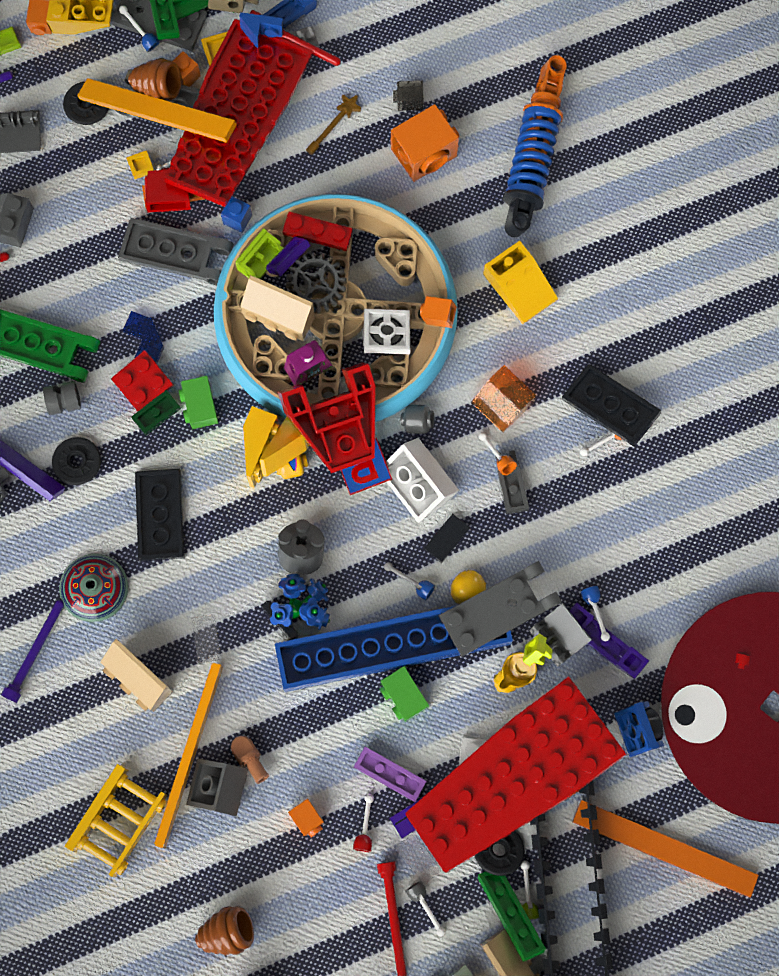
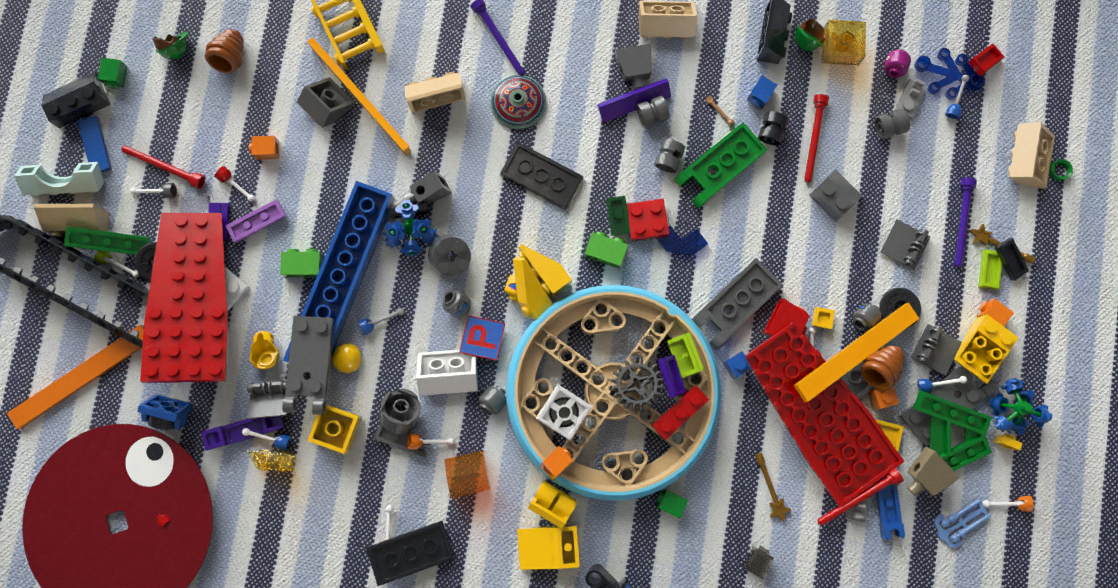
camera: 120 degrees right, 5 degrees up
(22, 440) = (653, 111): none -> dark grey wheel
(80, 474) = (621, 130): black wheel -> none
(107, 50) = (936, 349): none -> dark grey hinge
(114, 125) = (867, 317): none -> dark grey head
(206, 638) = (432, 155): clear tile -> none
(237, 612) = (428, 189): none -> dark grey torso
(248, 757) = (332, 134): nougat arm -> none
(258, 25) = (886, 472): blue slope -> none
(277, 309) = (632, 340): slope -> none
(307, 363) = (577, 339): magenta torso -> none
(340, 426) = (516, 333): red wedge -> none
(345, 512) = (456, 303): none -> dark grey head
(407, 198) = (671, 503): none -> green brick
(424, 142) = (707, 547): orange brick -> none
(447, 538) = (392, 366): black tile -> none
(478, 300) = (552, 504): none -> yellow plate
(486, 495) = (400, 411): none -> dark grey brick
(537, 650) = (266, 373): neon yellow tile -> none
(547, 545) = (335, 429): none -> yellow brick
(611, 580) = (269, 459): none -> clear yellow hinge

